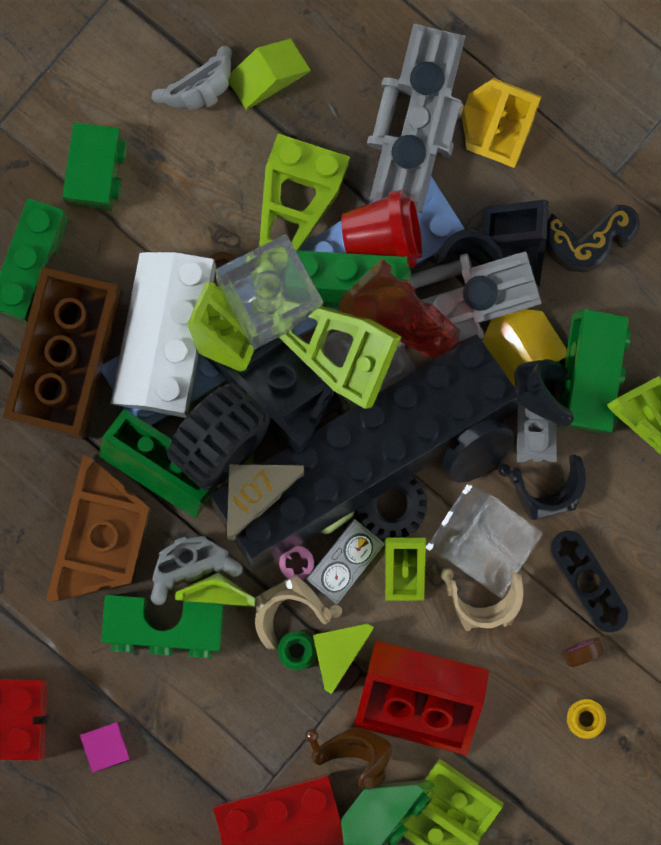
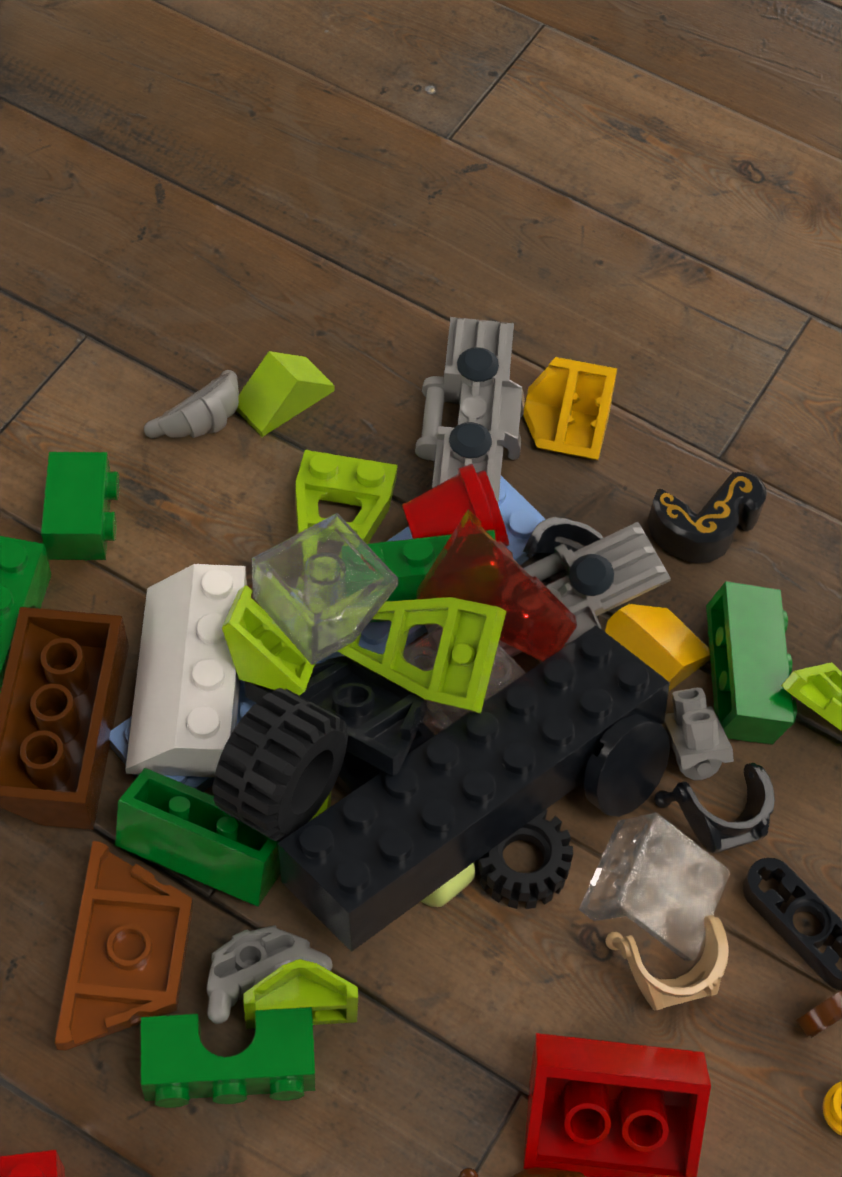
camera: 15 degrees left, 25 degrees down
(255, 490) = (342, 821): dark tan tile -> none
(284, 647) = (429, 1054): green plate -> none
(293, 589) = (379, 1002): tan helmet -> none
(304, 554) = (416, 939): bright pink bush -> none
(337, 651) = (482, 1057): lime slope -> none
(345, 561) = (471, 940): slope -> none
(405, 569) = (557, 930): lime slope -> none
(520, 229) = (623, 504): black slope -> none
(540, 398) = (698, 676): black helmet -> none

